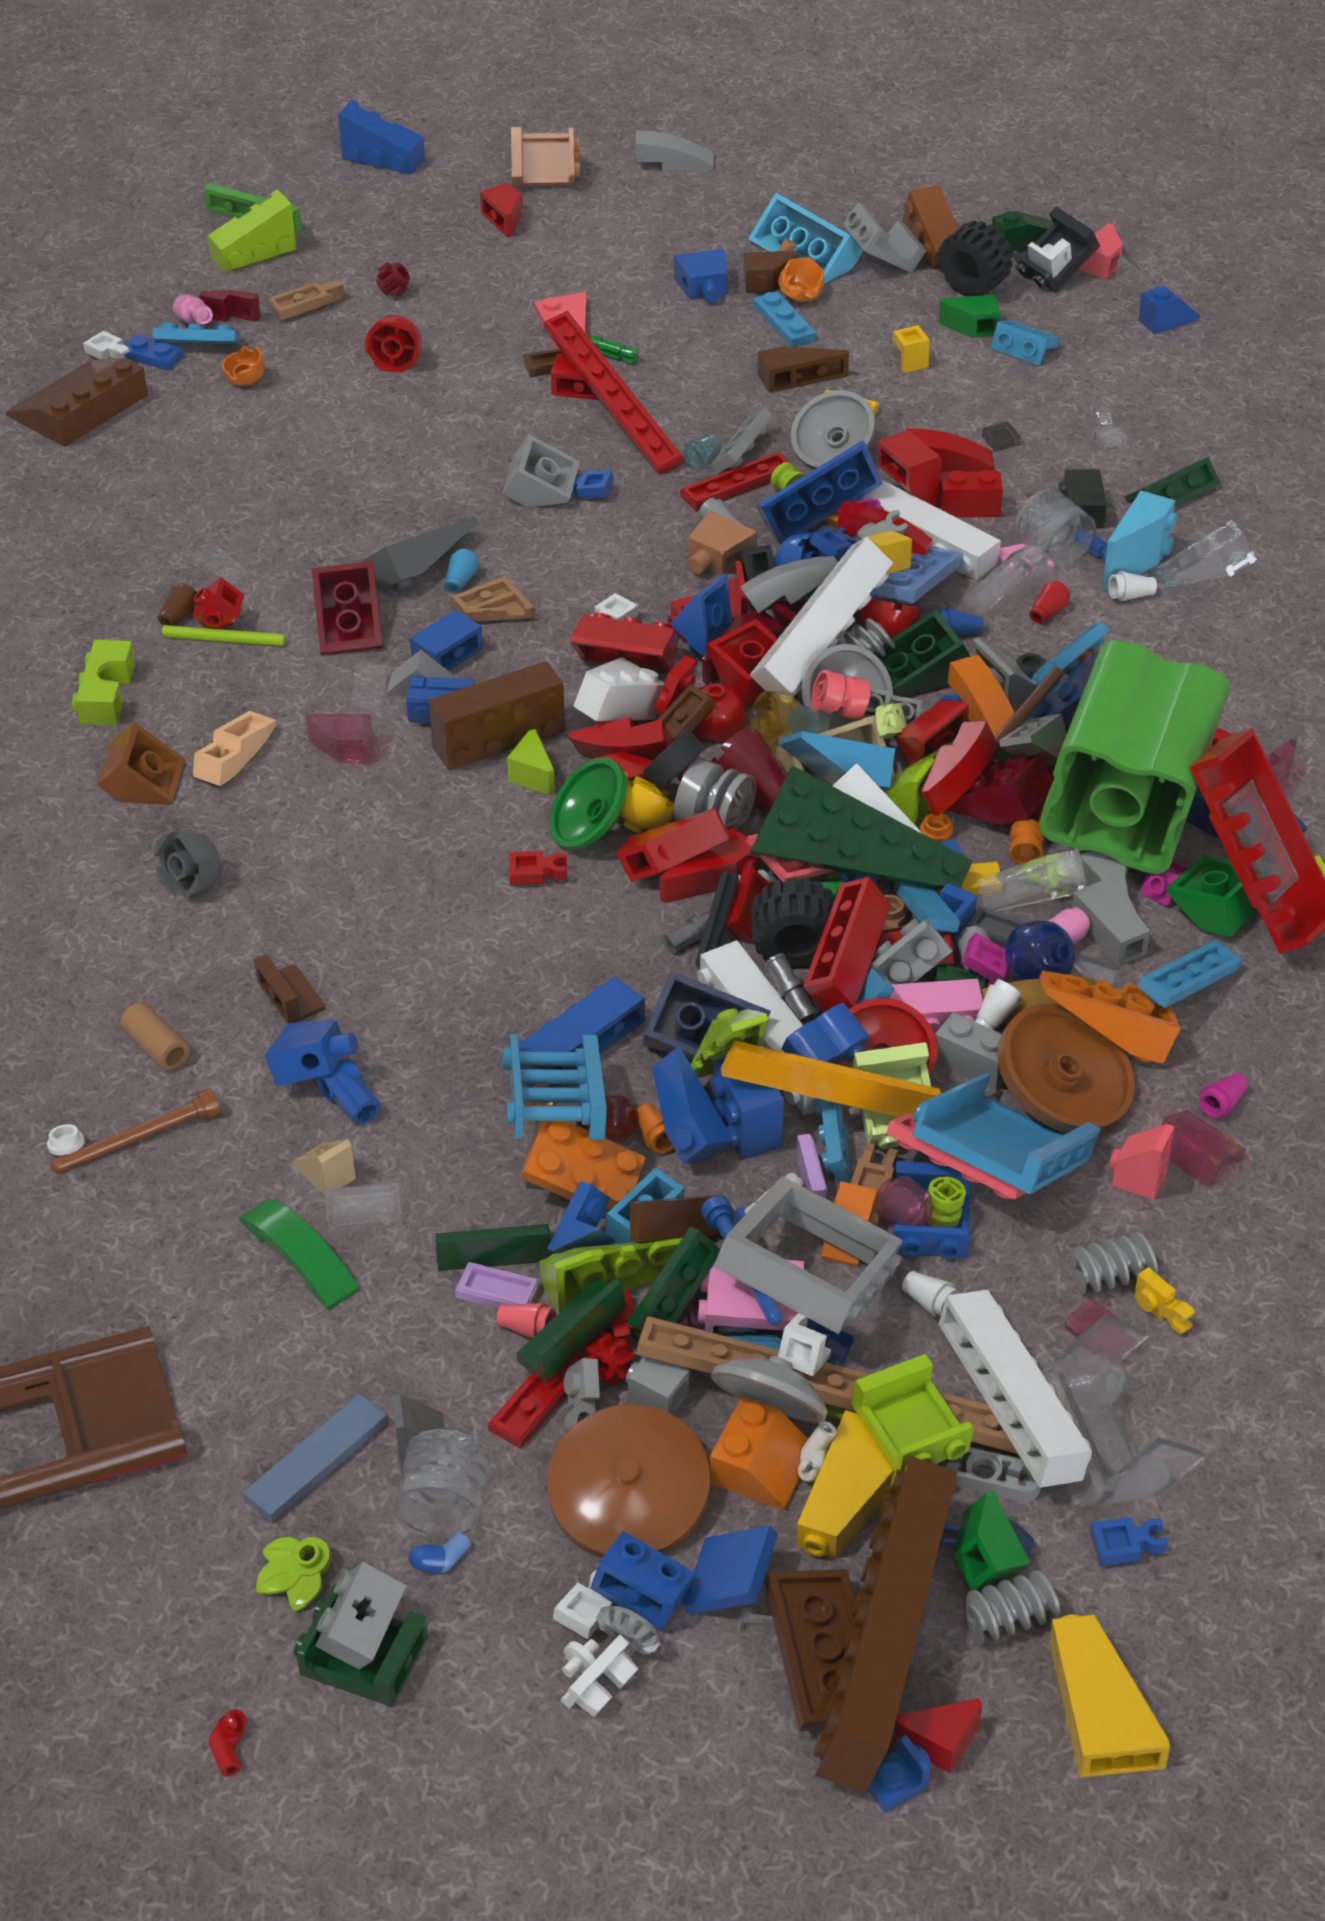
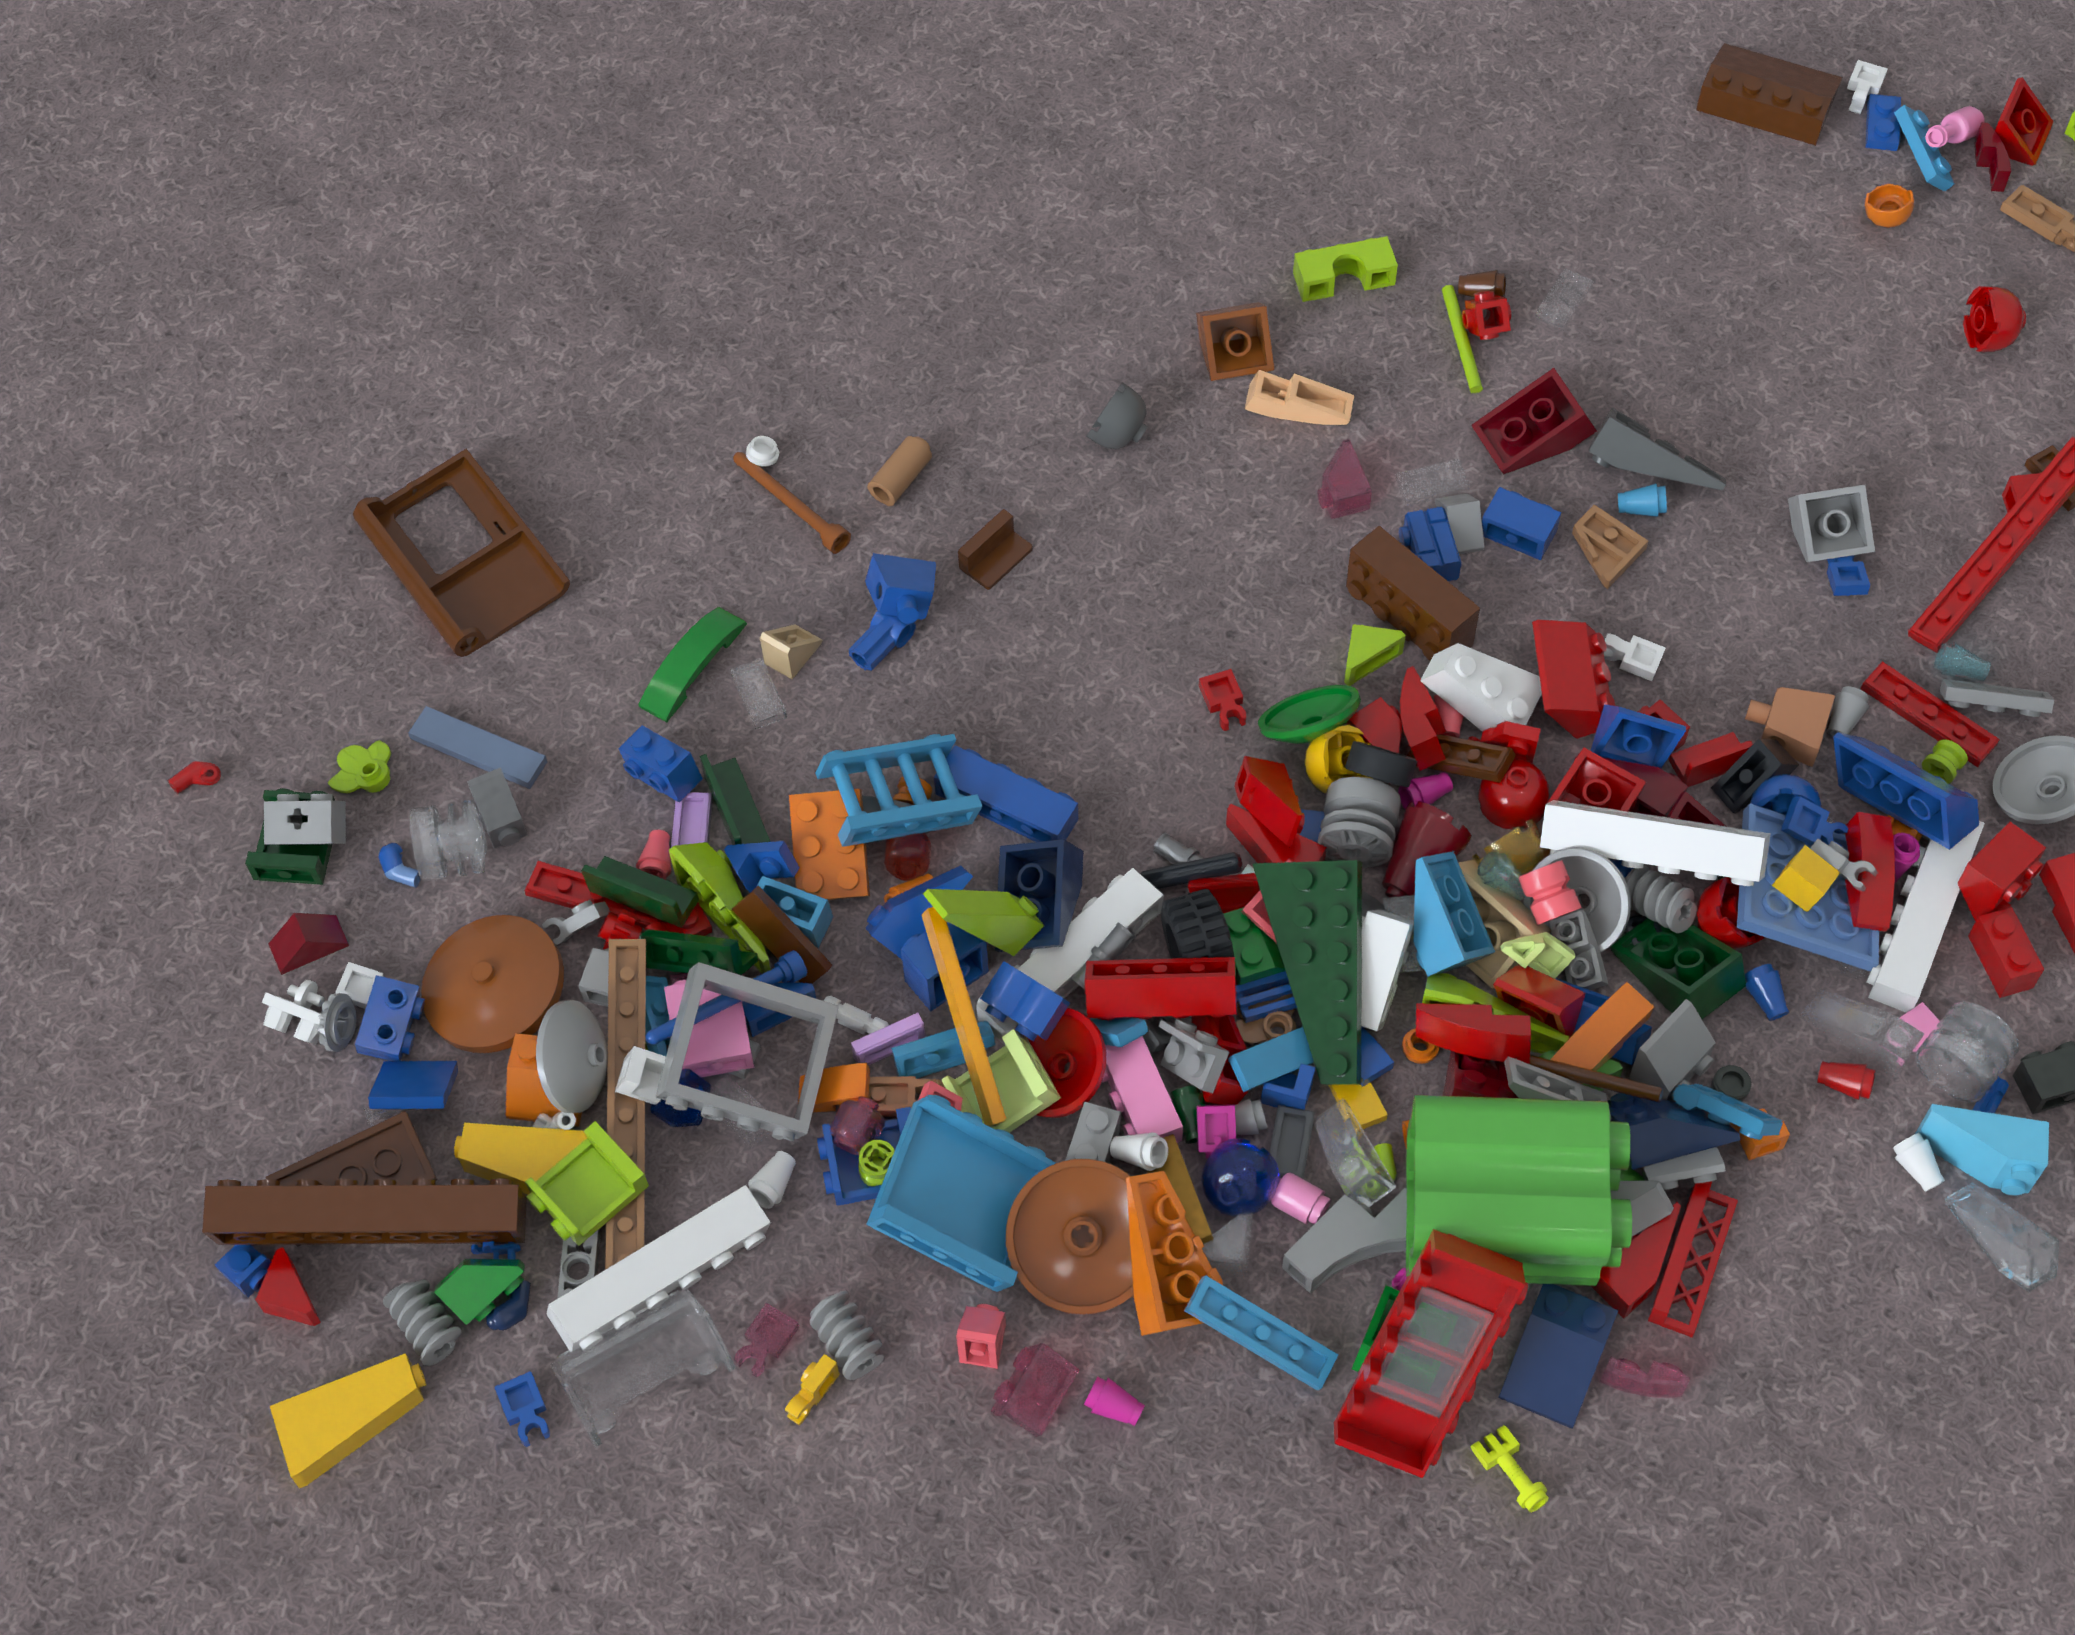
camera: 75 degrees right, 15 degrees up
(195, 280) = (2023, 124): none -> red slope
(424, 1285) = (660, 763): none -> blue brick
(503, 1661) = (306, 939): none -> dark red slope
(790, 579) = (1713, 793): light grey slope -> none

